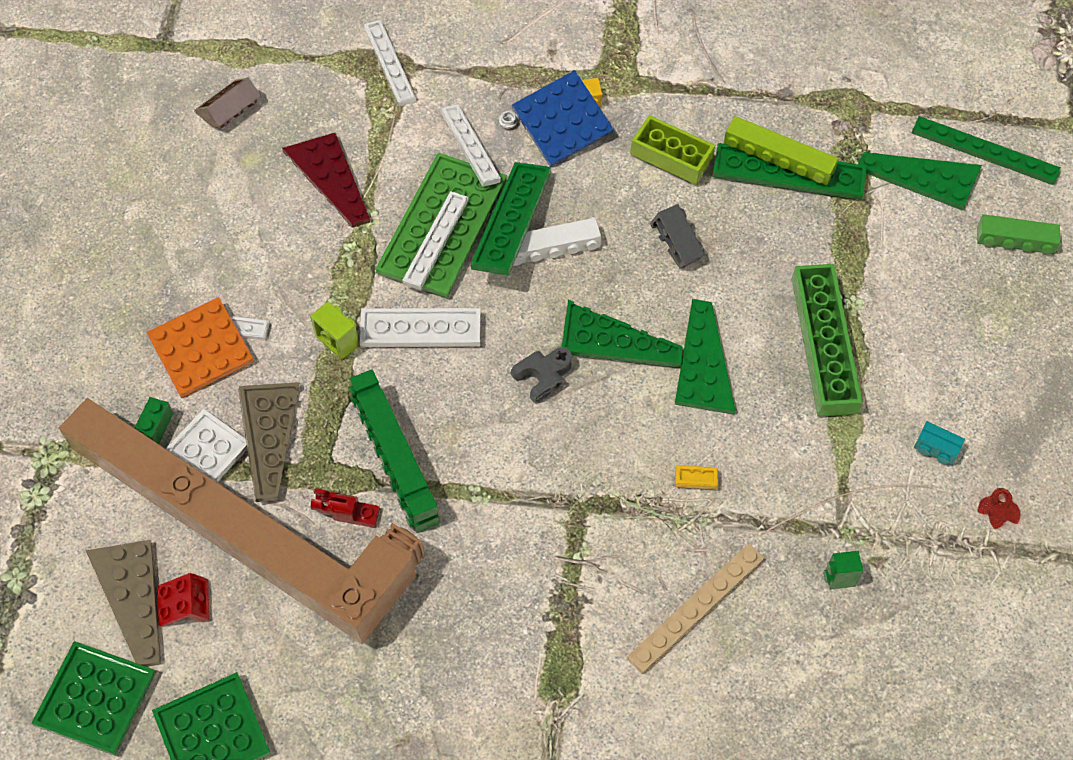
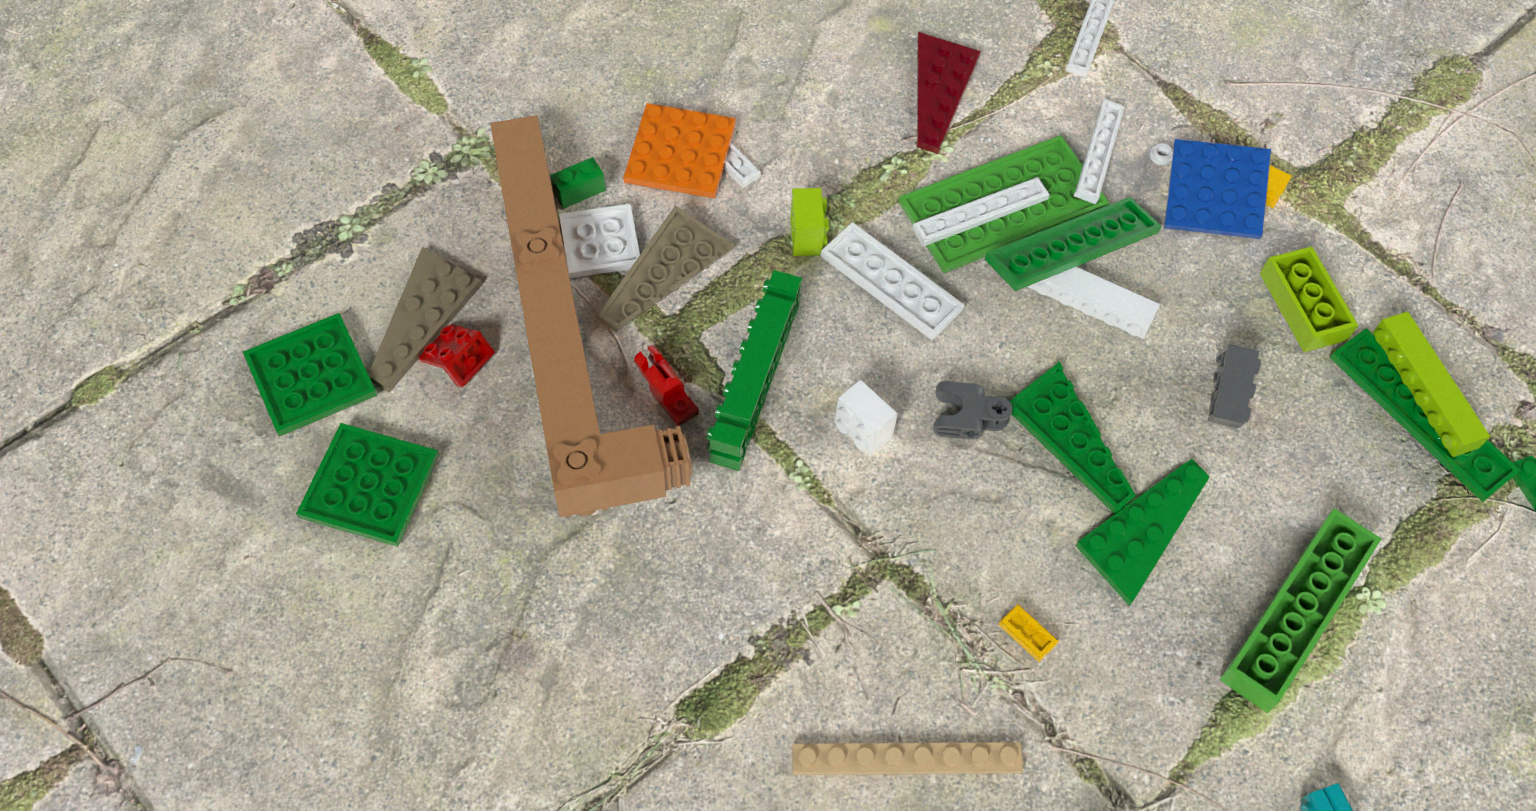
camera: 40 degrees right, 0 degrees up
(489, 426) = (865, 418): none -> white brick

